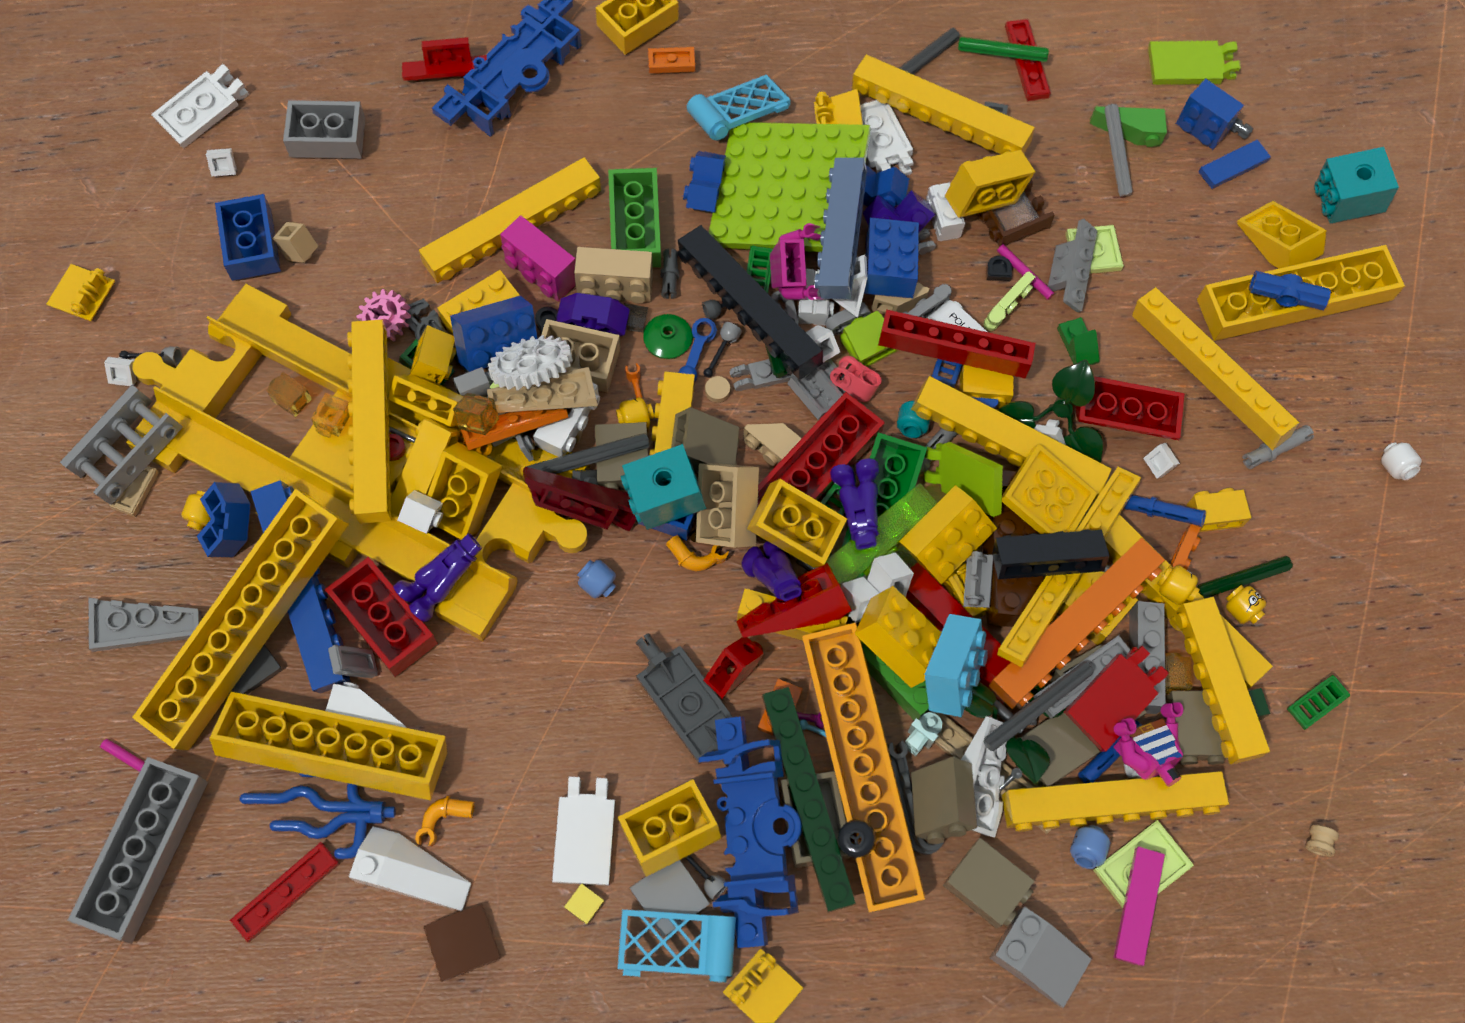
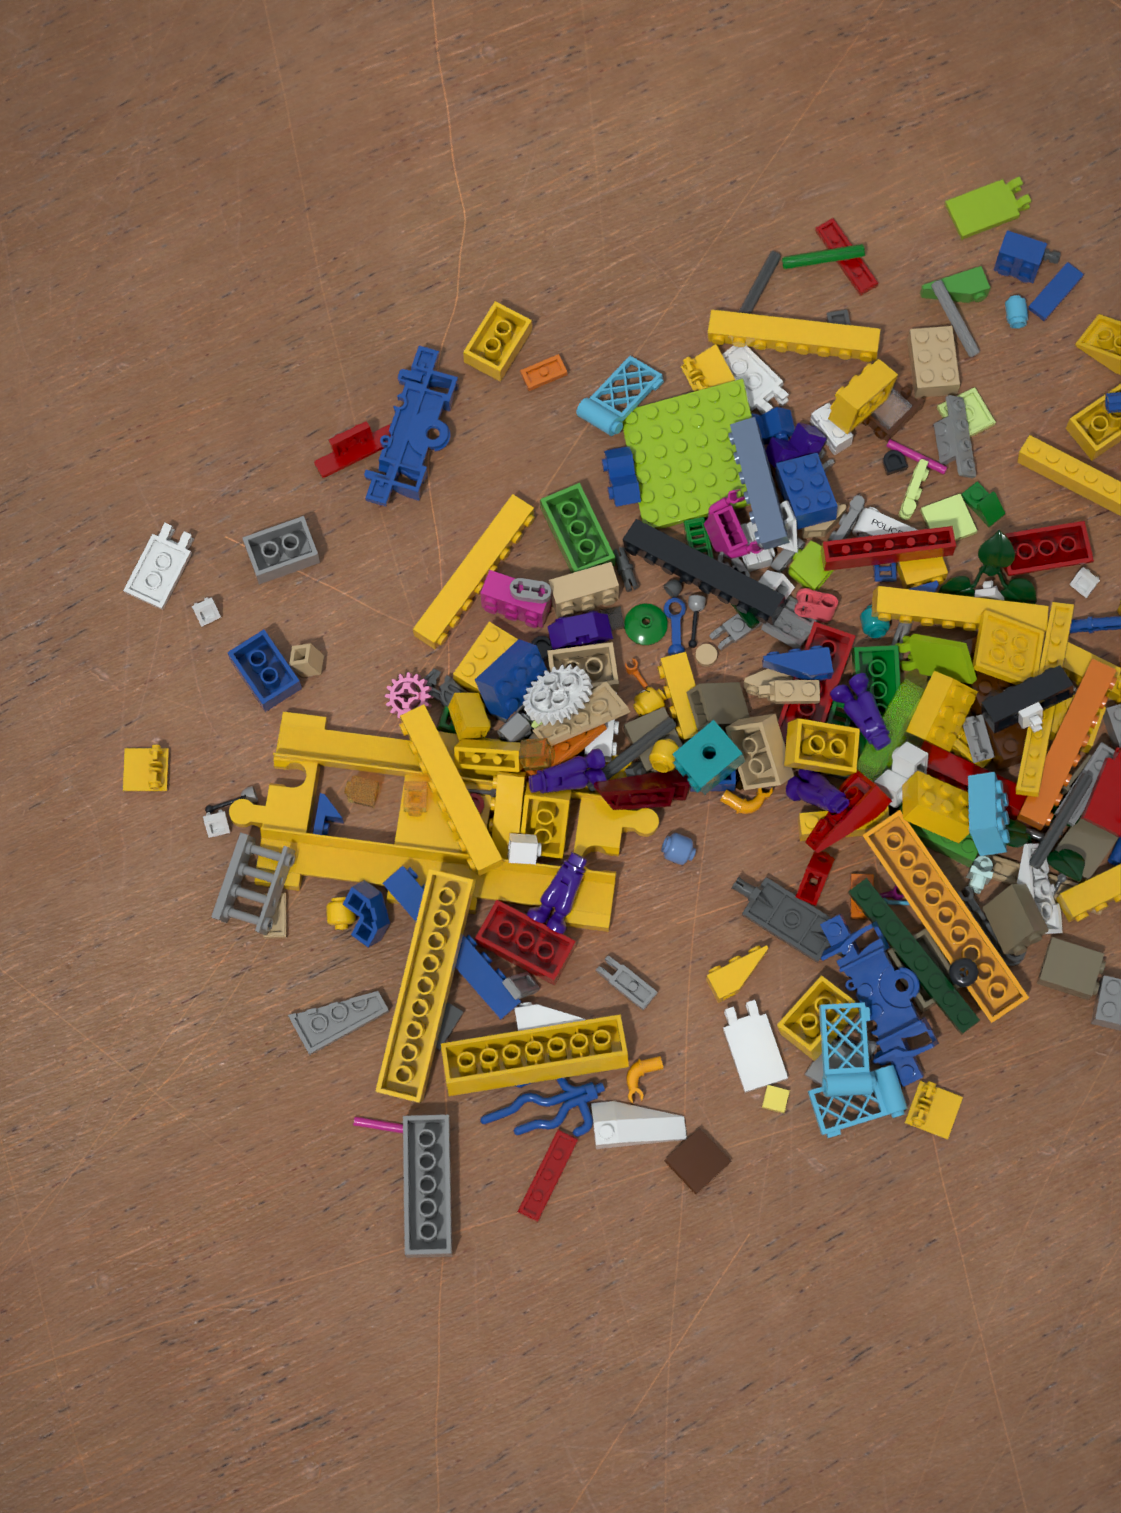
camera: 15 degrees left, 5 degrees up
(236, 401) = (325, 813): none -> blue slope
(476, 707) = (628, 984): none -> light grey hinge
(502, 448) = (570, 774): none -> dark purple piece
(554, 246) = (531, 585): none -> light grey beam
(594, 744) = (731, 978): none -> yellow slope
(613, 469) = (661, 755): none -> yellow head
(676, 916) = (846, 1080): none -> medium azure piece
(789, 454) = (791, 691): none -> tan hinge
(815, 430) = (805, 665): none -> blue slope
(1047, 348) = (947, 513): none -> yellowish green tile
(1047, 575) = (1031, 716): none -> white tile
(1079, 183) = (933, 362): none -> tan brick
(1185, 167) = (1016, 312): none -> medium azure brick

